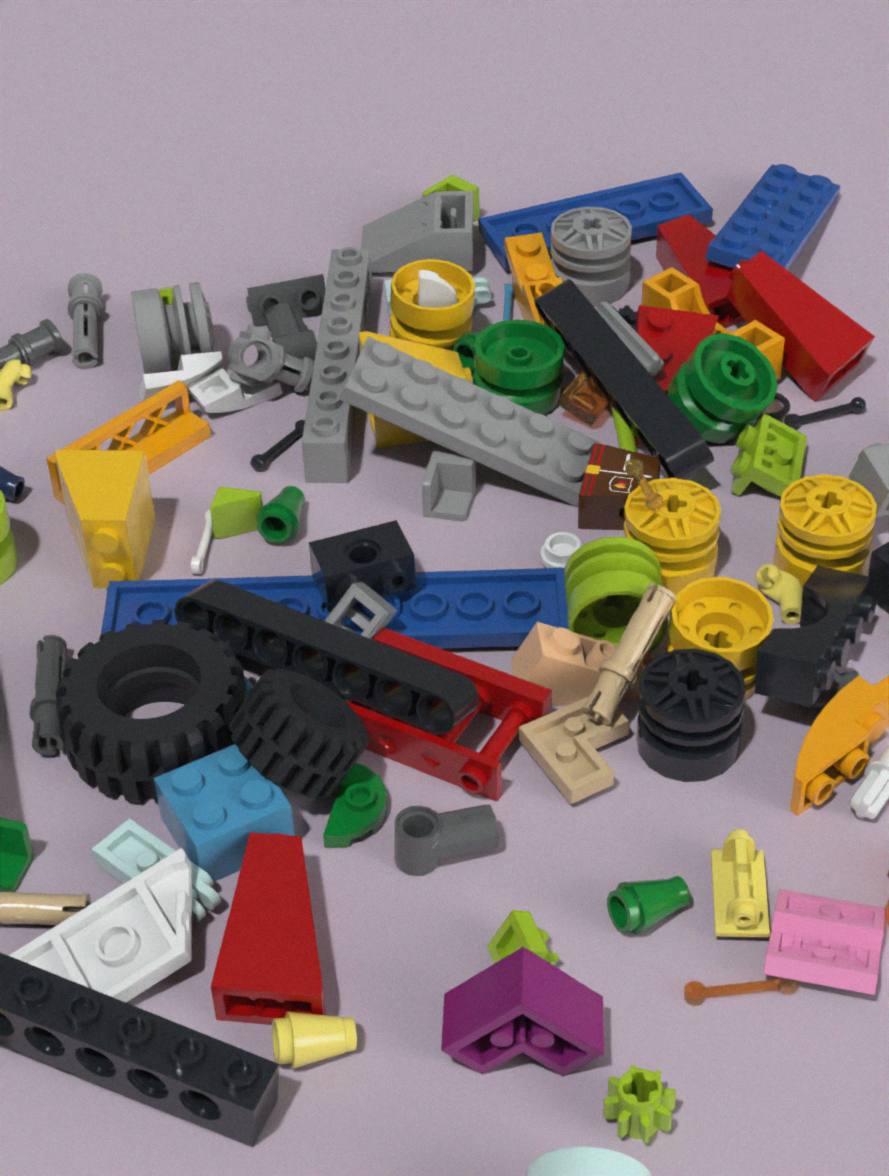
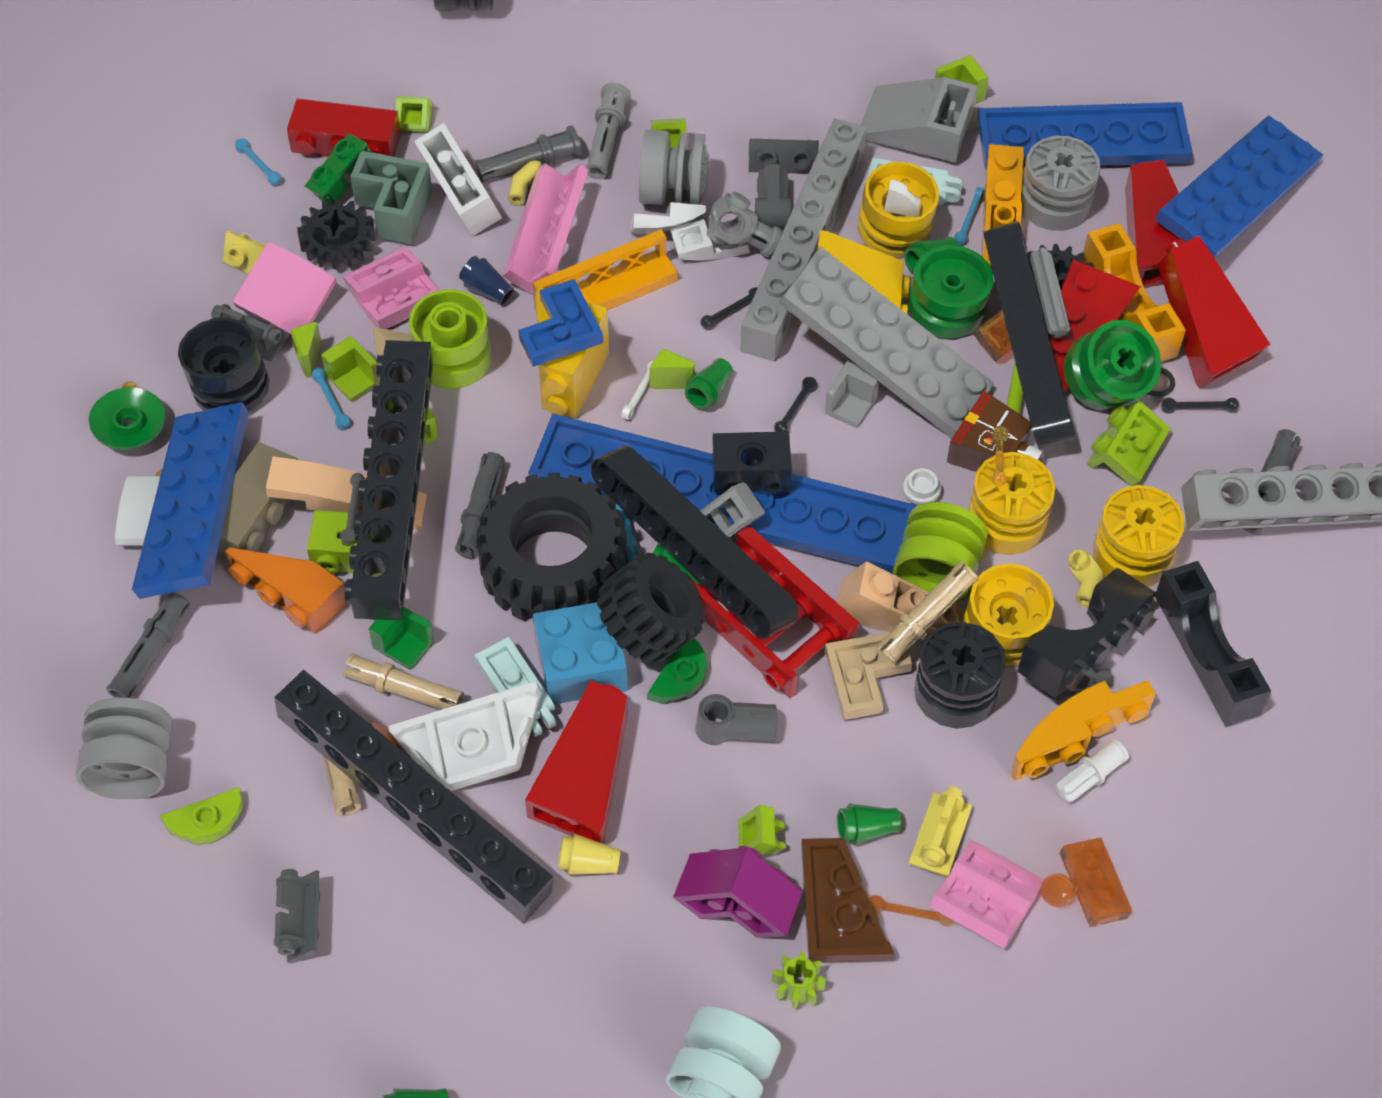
camera: 15 degrees right, 15 degrees up
(42, 413) = (544, 225): none -> bright pink fence
(101, 474) = (567, 330): none -> blue plate
(394, 494) = (808, 386): none -> black hinge
(649, 1008) = (837, 910): none -> reddish brown wing

